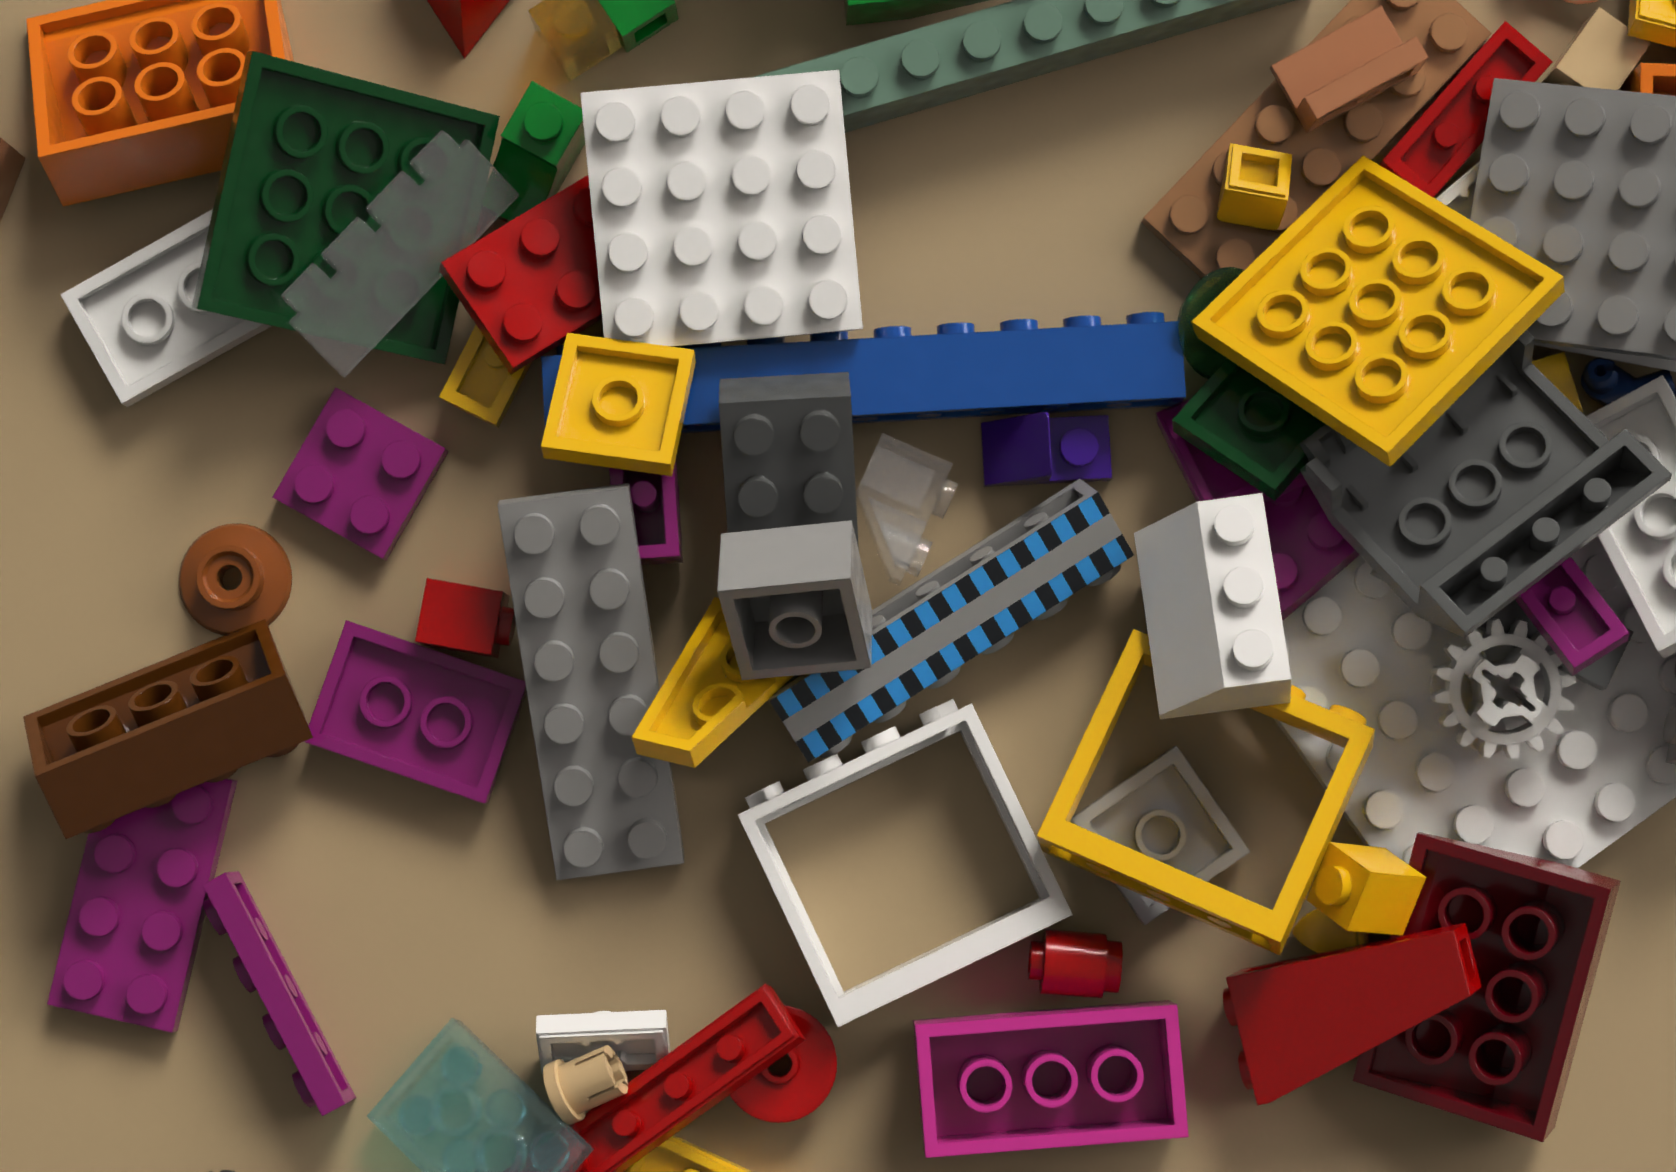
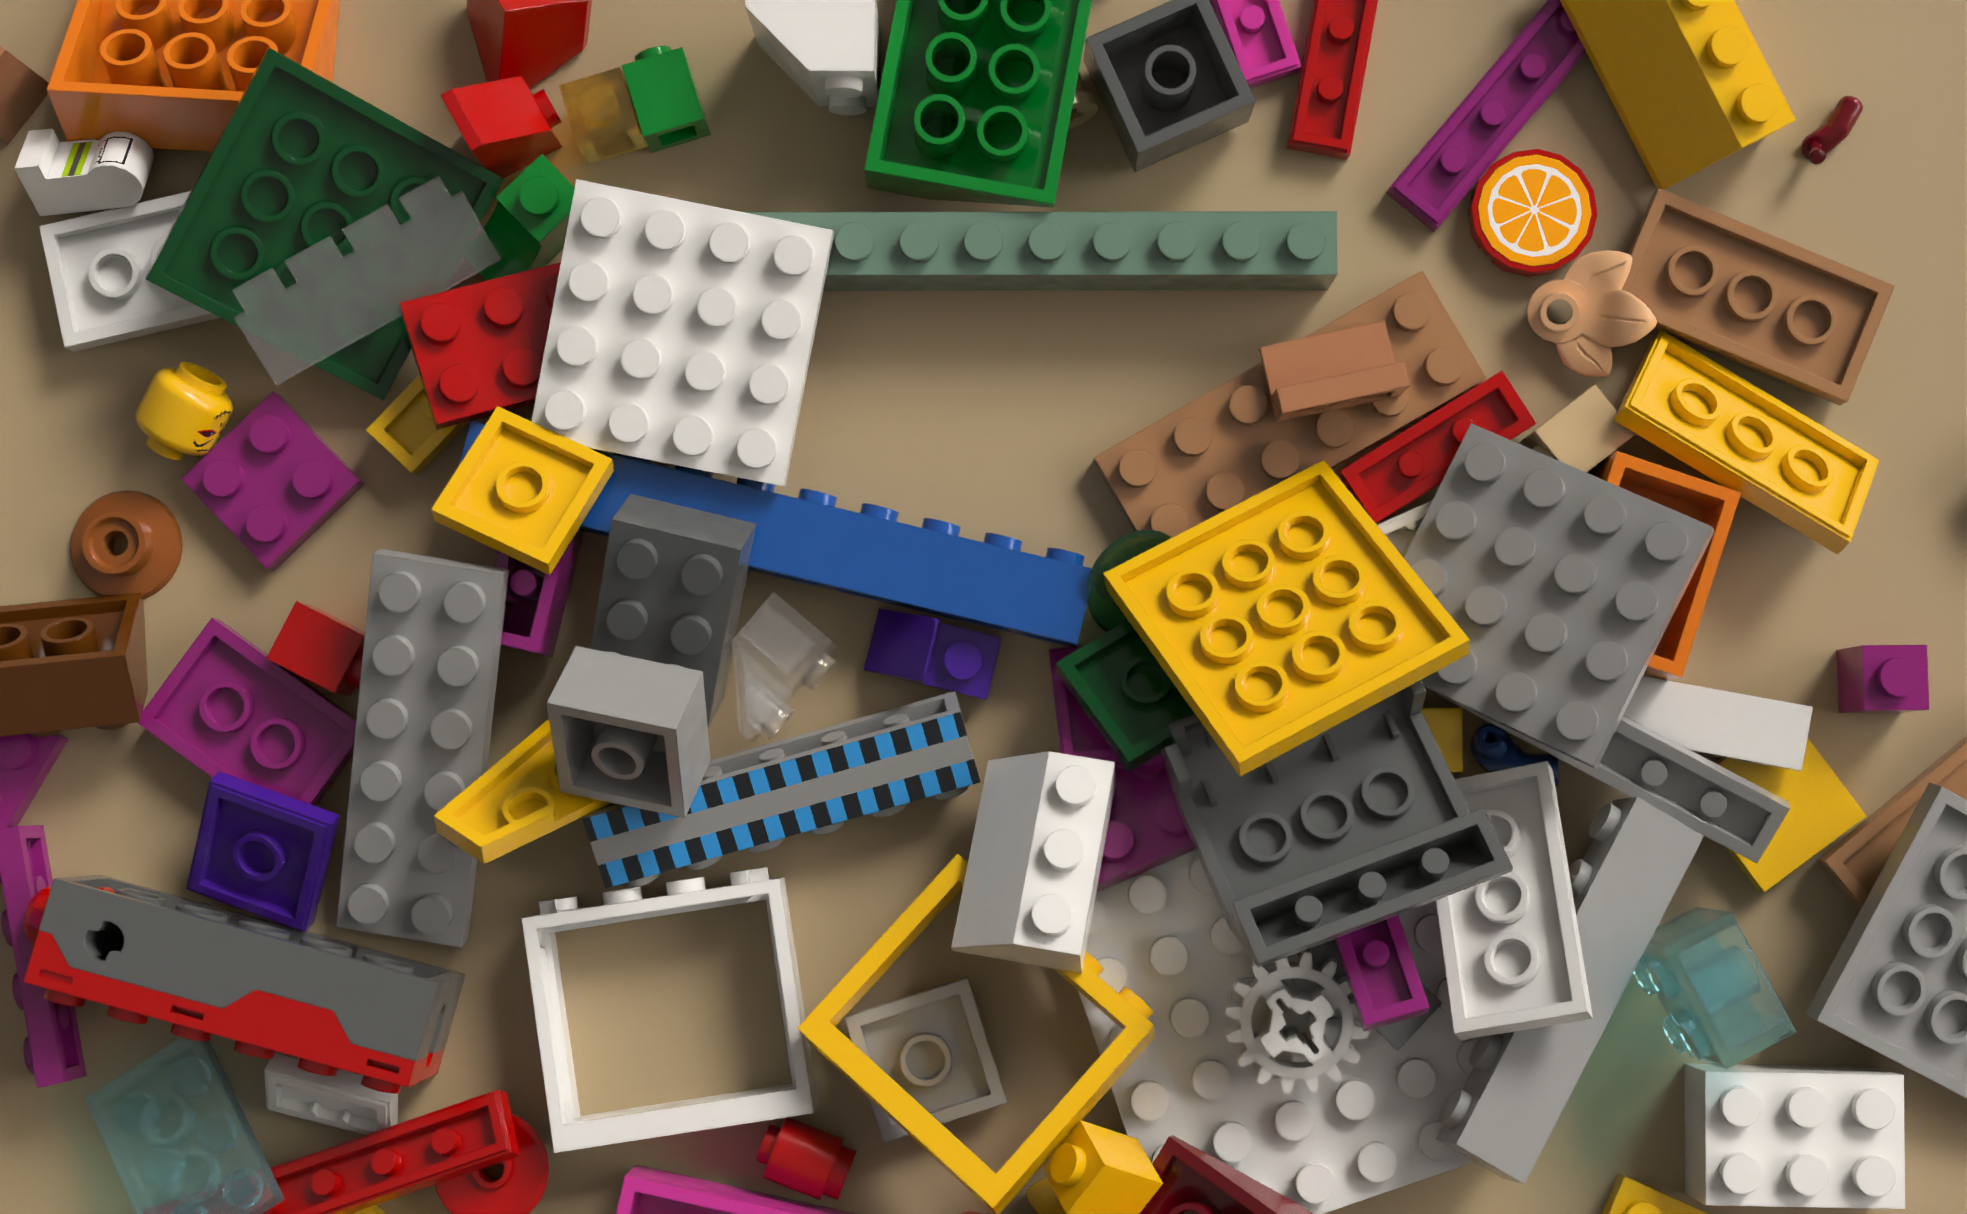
camera: 25 degrees right, 0 degrees up
(90, 229) = (83, 172): none -> white leg
(256, 431) = (184, 411): none -> yellow head
(464, 828) = (262, 851): none -> dark purple tile
(484, 63) = (504, 123): none -> red slope
(484, 954) = (240, 980): none -> dark grey piece
(584, 1083) = (296, 1132): tan bush -> none
(1254, 187) = (1208, 459): yellow slope -> none

